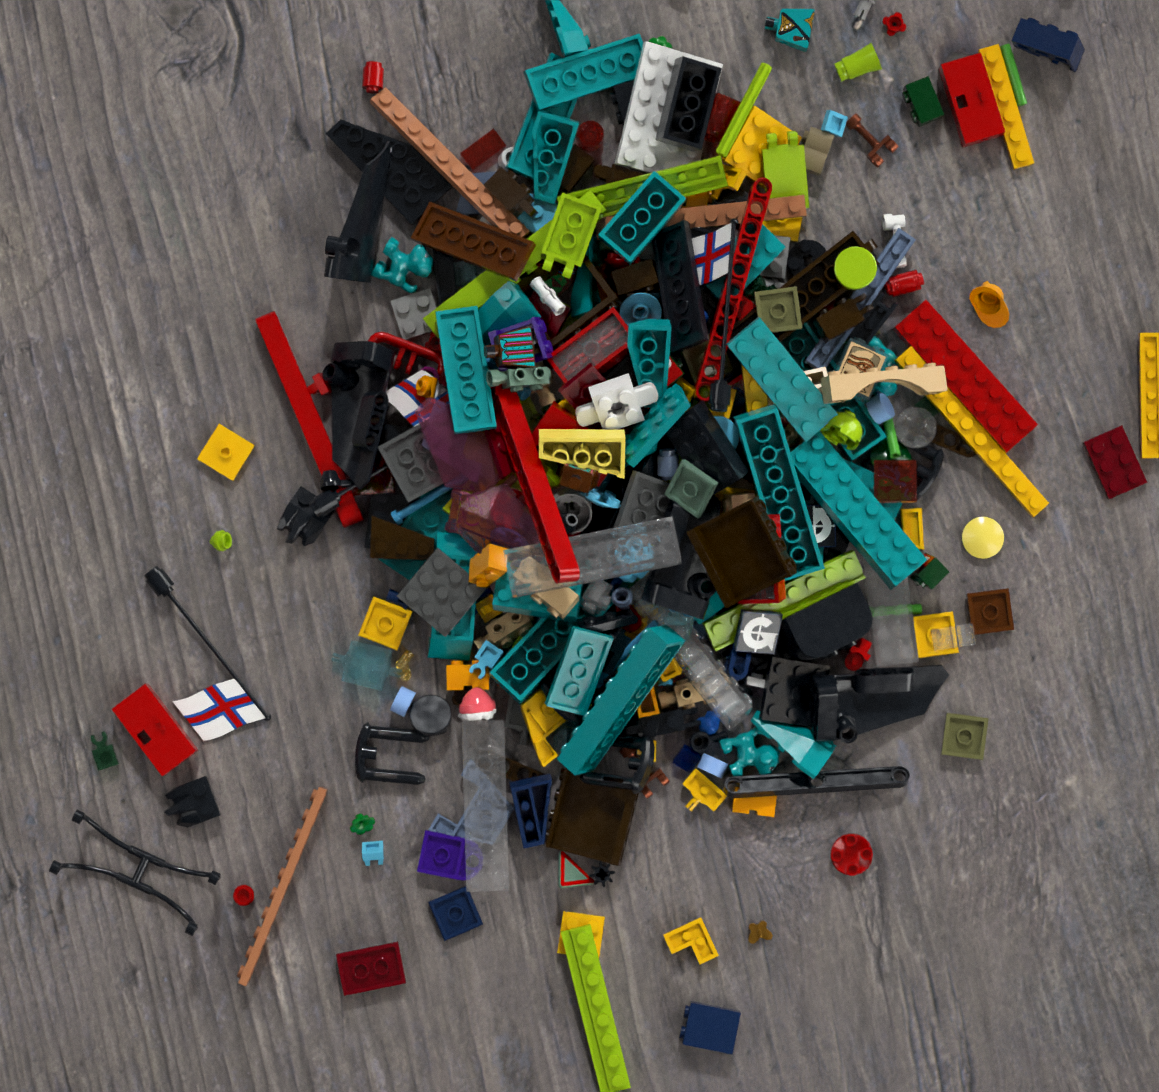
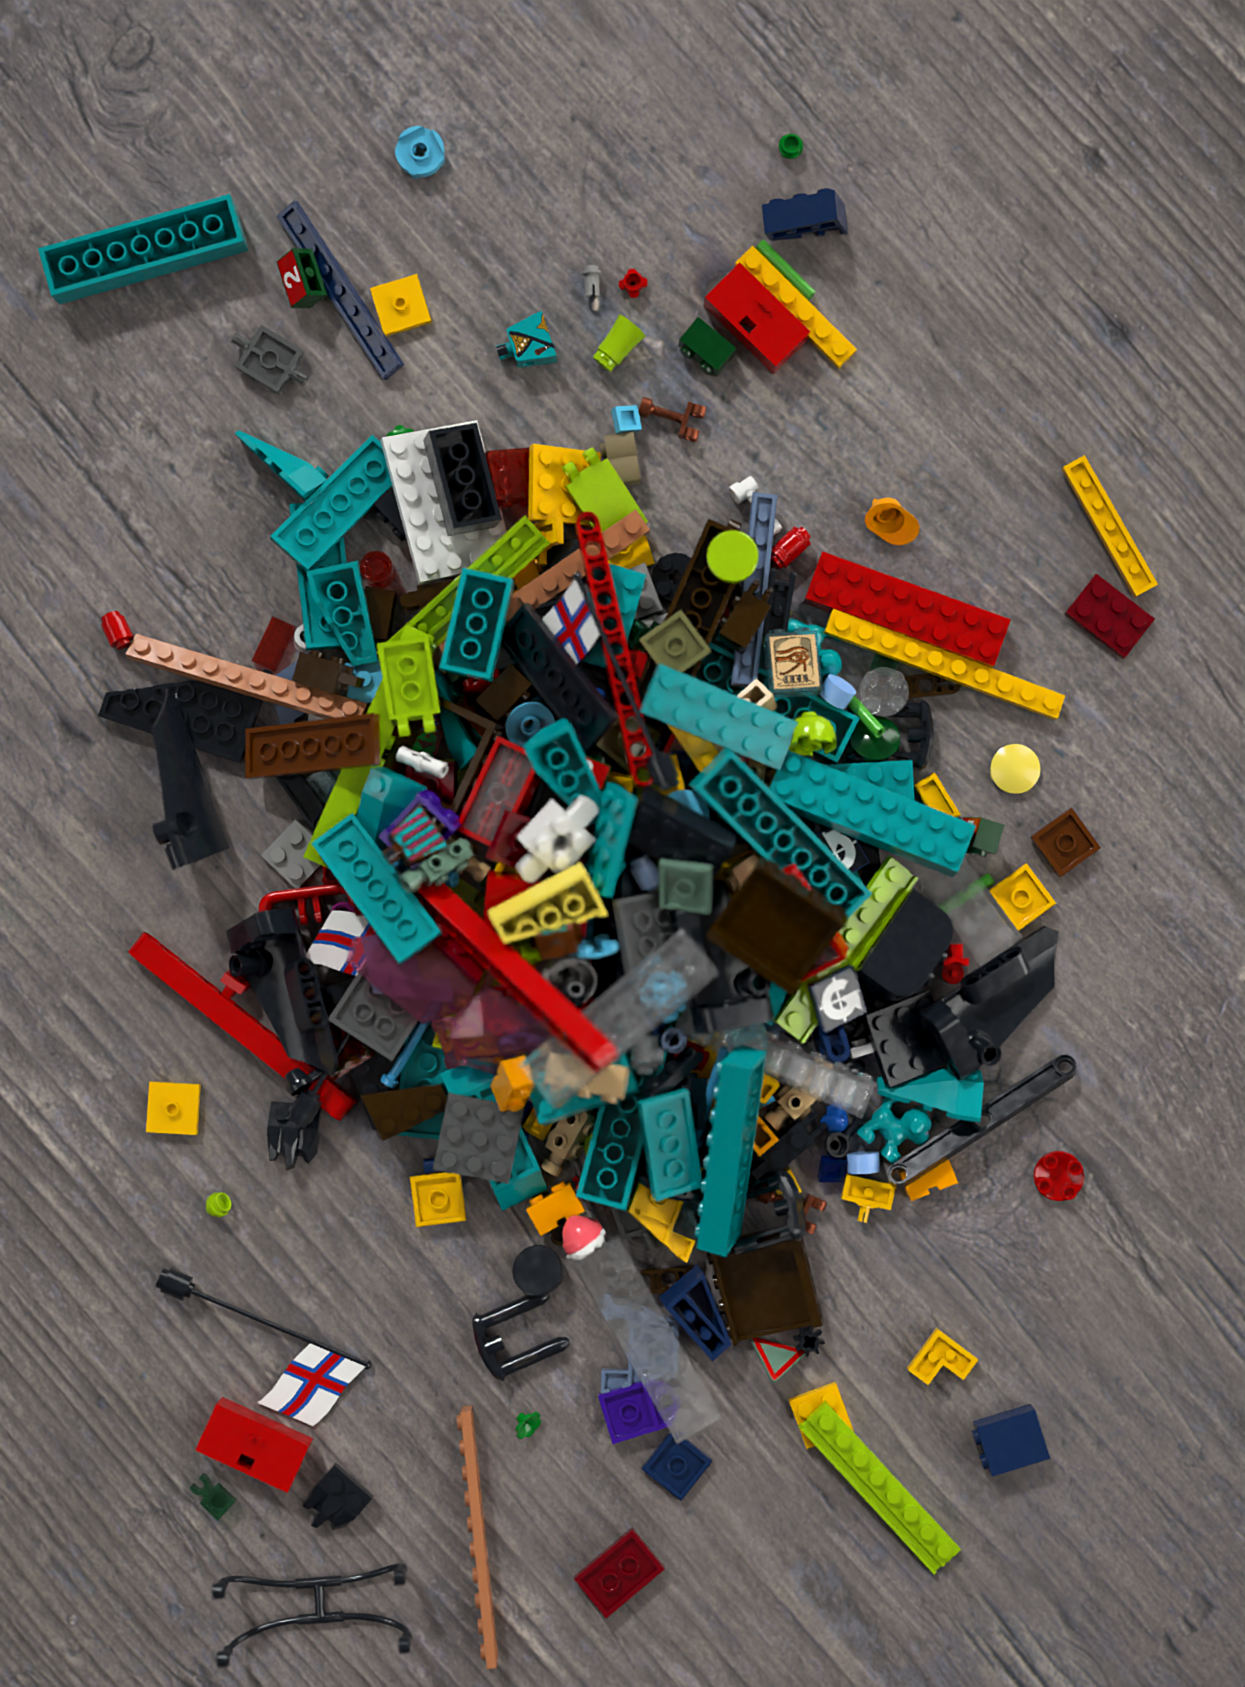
camera: 25 degrees left, 0 degrees up
(243, 895) = (443, 1567): red plate -> none
(366, 665) = (442, 1254): clear light blue plate -> none
(373, 851) = (554, 1448): medium azure tile -> none
(402, 701) = (500, 1271): light blue piece -> none
(403, 663) = (481, 1233): clear yellow arm -> none
(417, 262) = (266, 799): teal animal -> none
(426, 386) = (346, 926): light orange plate -> none
(488, 657) = (564, 1177): medium azure plate -> none
(743, 110) = (523, 454): lime axle -> none
(759, 931) = (1005, 1310): pearl gold piece -> none
(895, 481) = (894, 759): clear red tile -> none
(923, 381) = (865, 639): tan arch -> none
(953, 636) = (1043, 889): clear plate -> none
(964, 736) = (1109, 987): olive plate -> none

